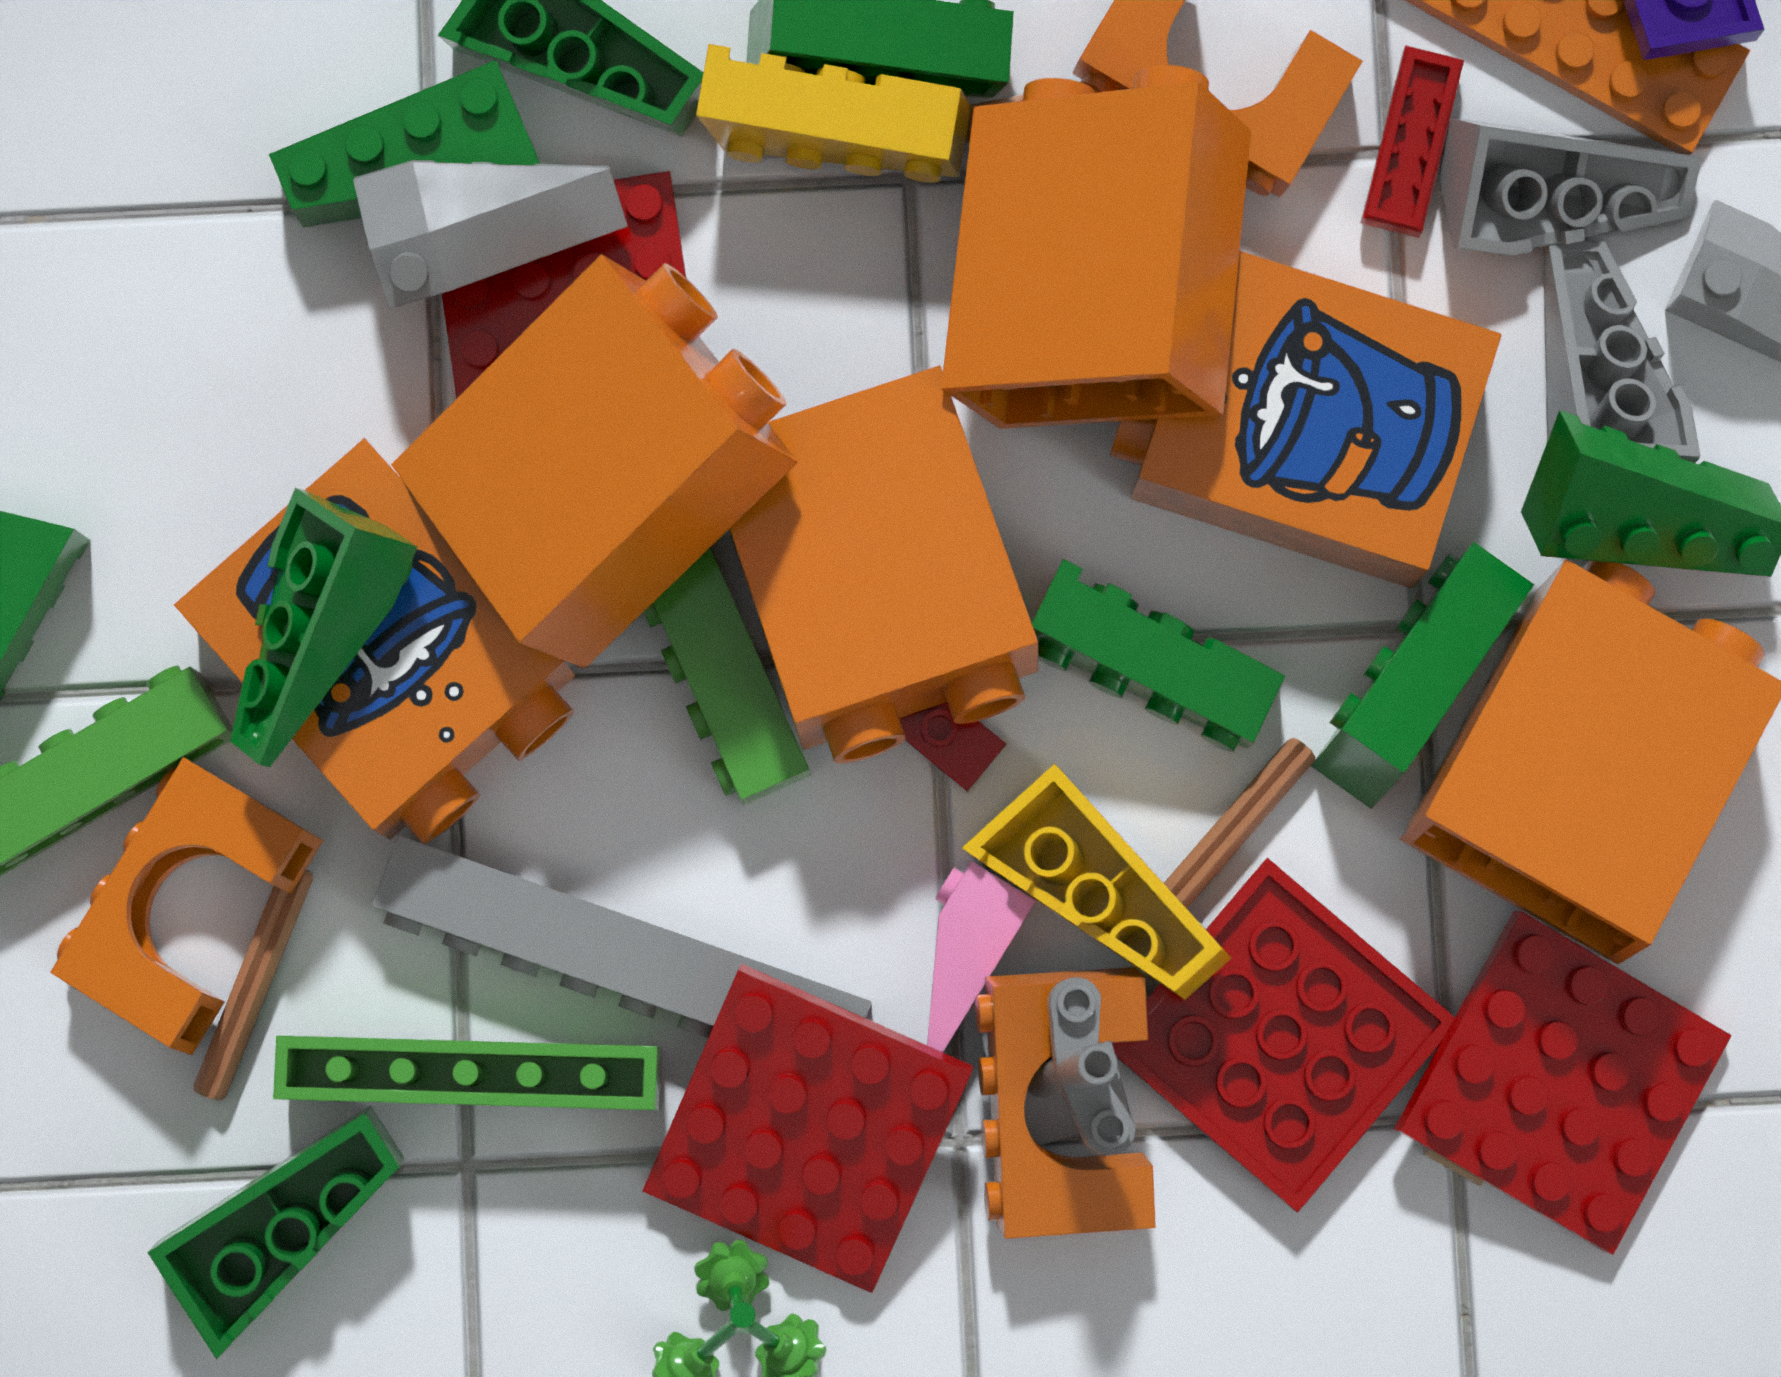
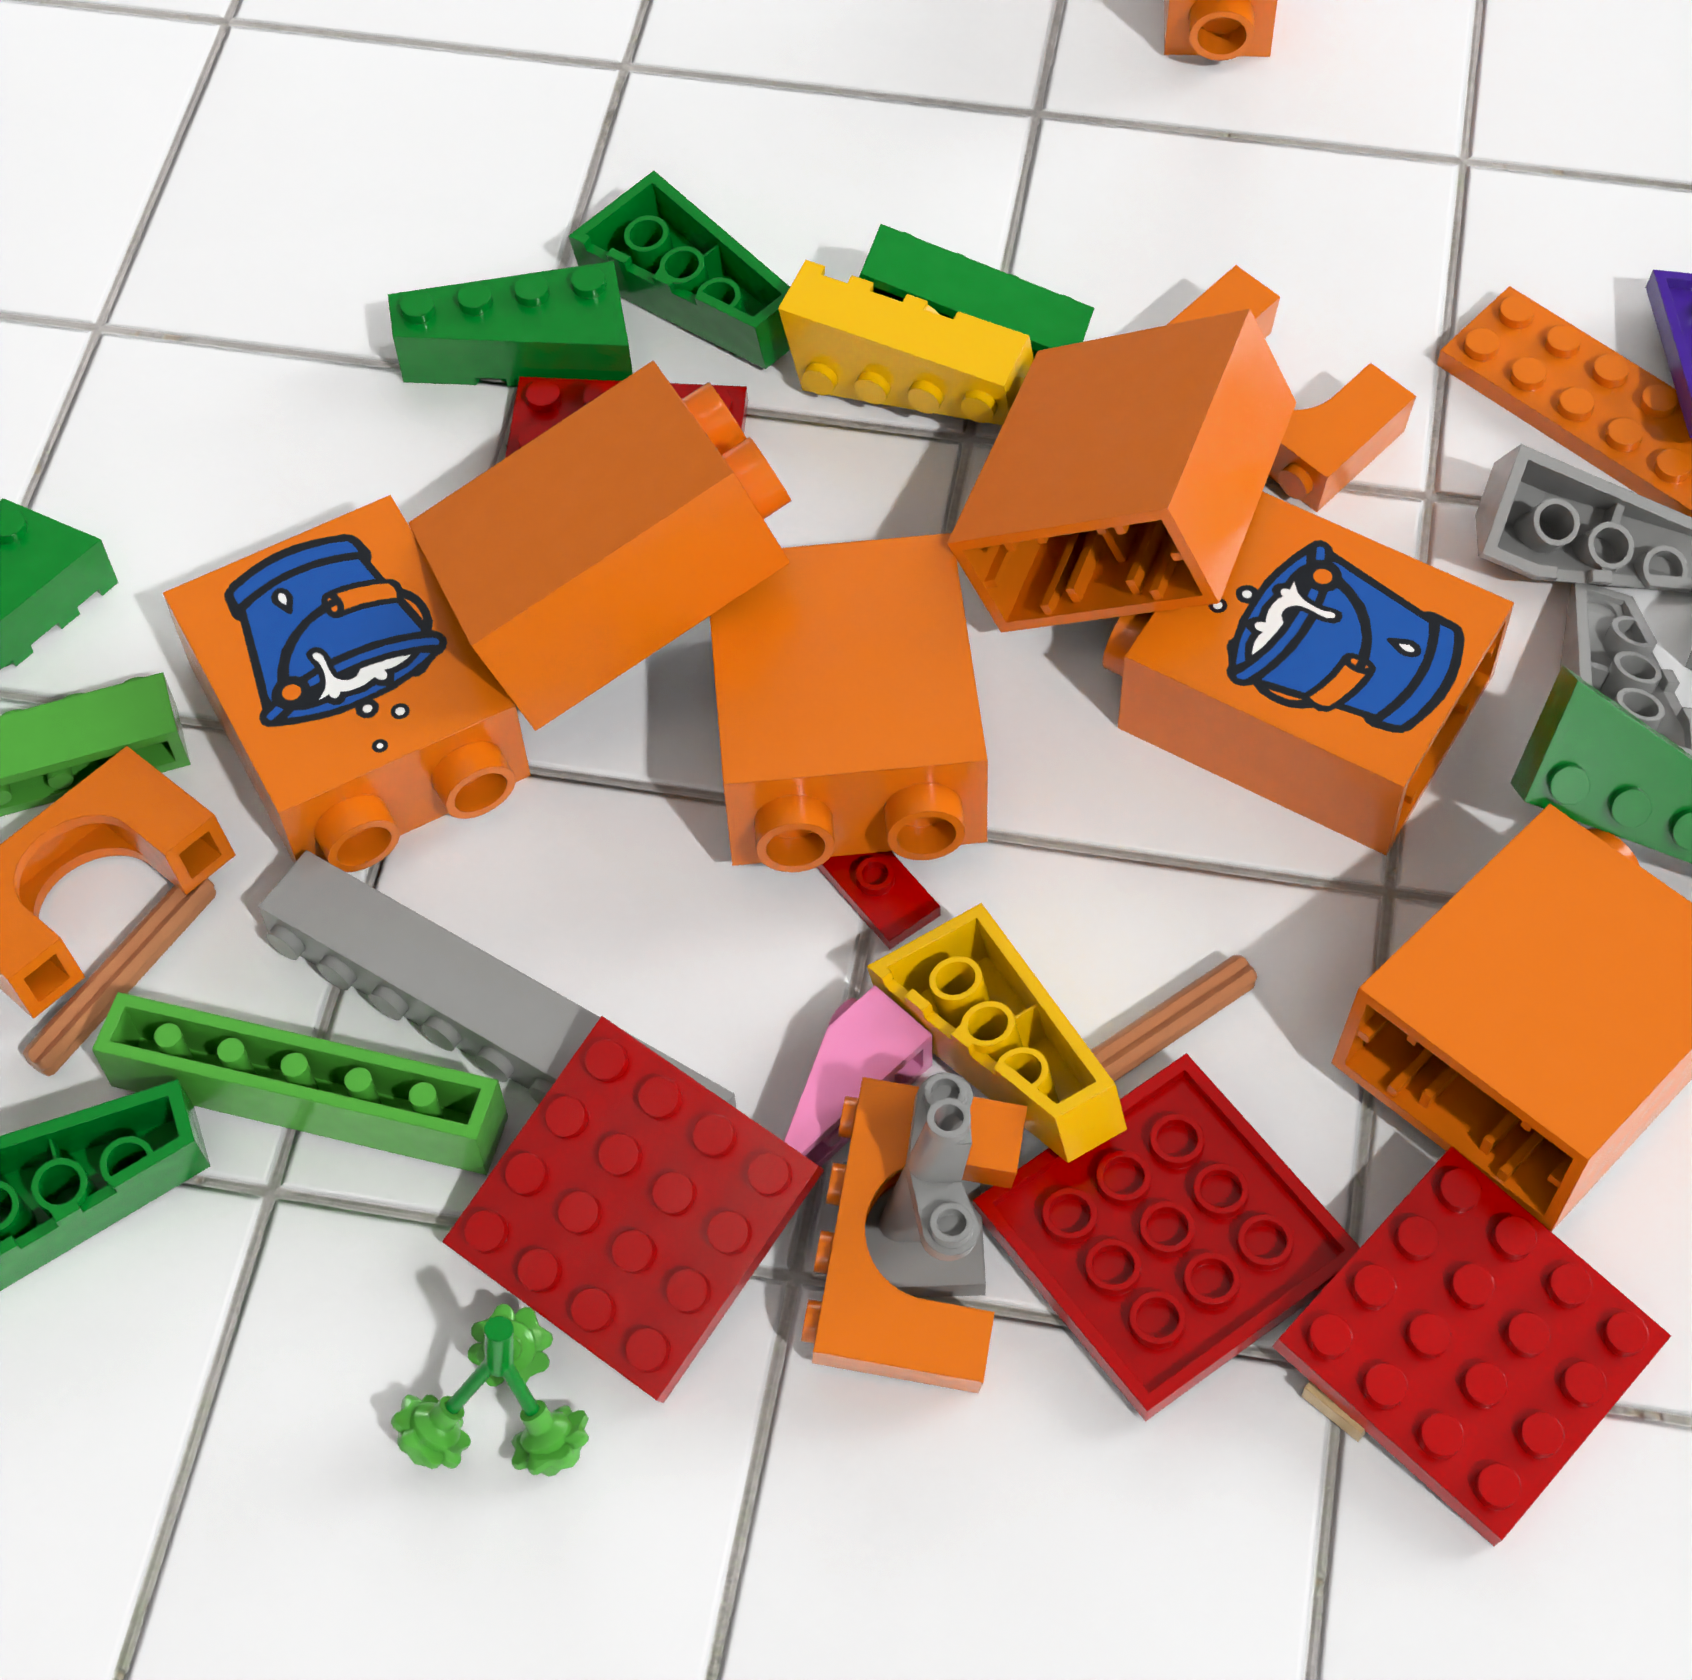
camera: 15 degrees right, 25 degrees down
(327, 599) = (316, 585): green wedge -> none
(463, 222) = (541, 369): light grey wedge -> none
(728, 683) = (673, 783): bright green brick -> none
(1153, 660) = (1104, 844): green wedge -> none
(1412, 141) = (1452, 482): red plate -> none
(1422, 675) = (1366, 914): green wedge -> none

